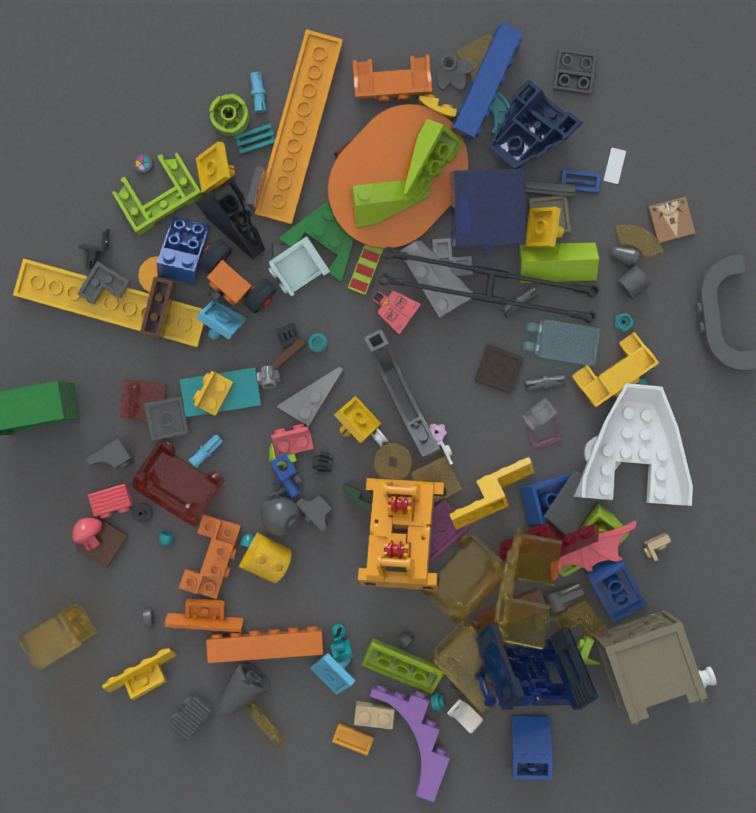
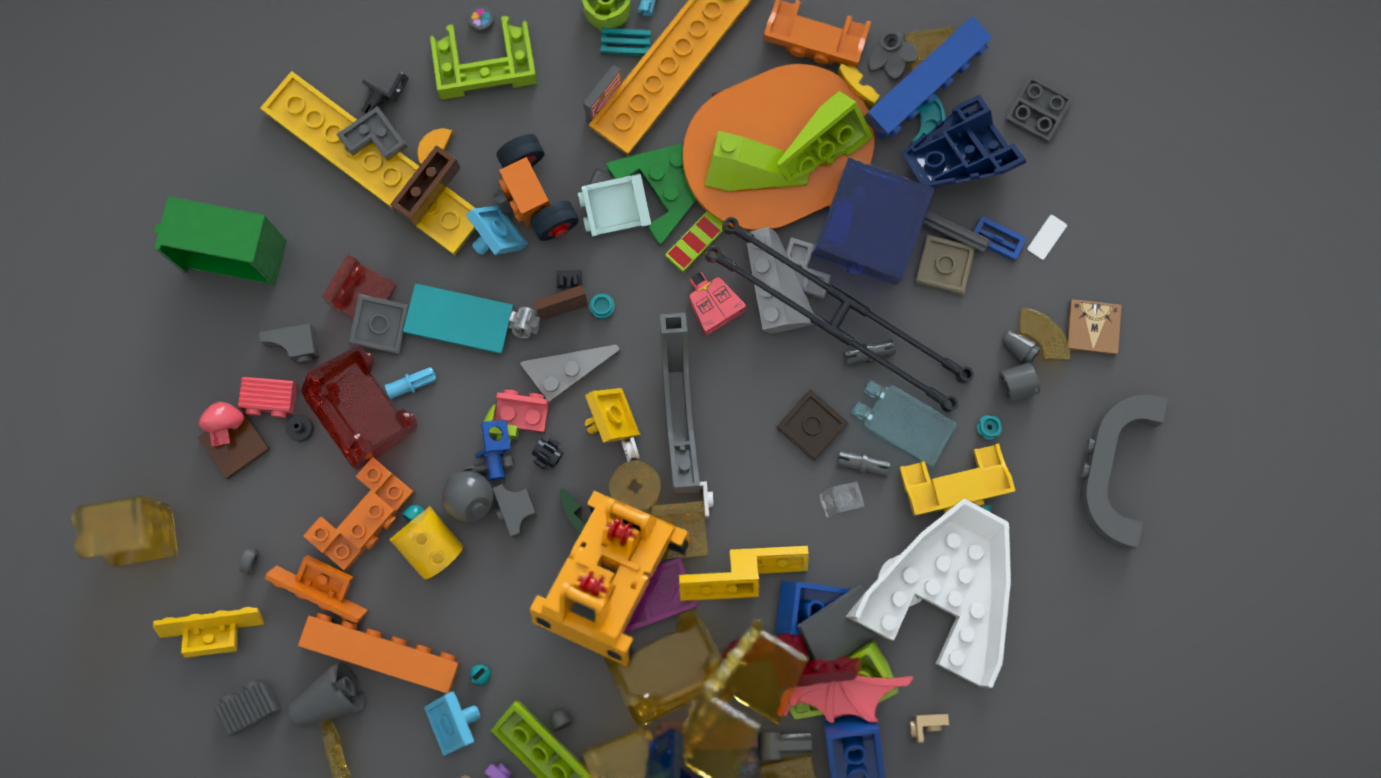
camera: 25 degrees right, 10 degrees down
(166, 538) = (314, 471): teal hinge -> none
(182, 250) = (482, 133): blue slope -> none
(212, 393) = (448, 313): yellow bracket -> none
(213, 167) = (562, 52): yellow tile -> none
(227, 212) = (557, 110): black wedge -> none
(341, 650) = (473, 698): teal tile -> none
(438, 431) = (707, 471): plant -> none
(543, 227) = (932, 271): yellow tile -> none
(546, 442) = (838, 538): clear pink piece -> none
(560, 263) = (936, 324): lime slope -> none

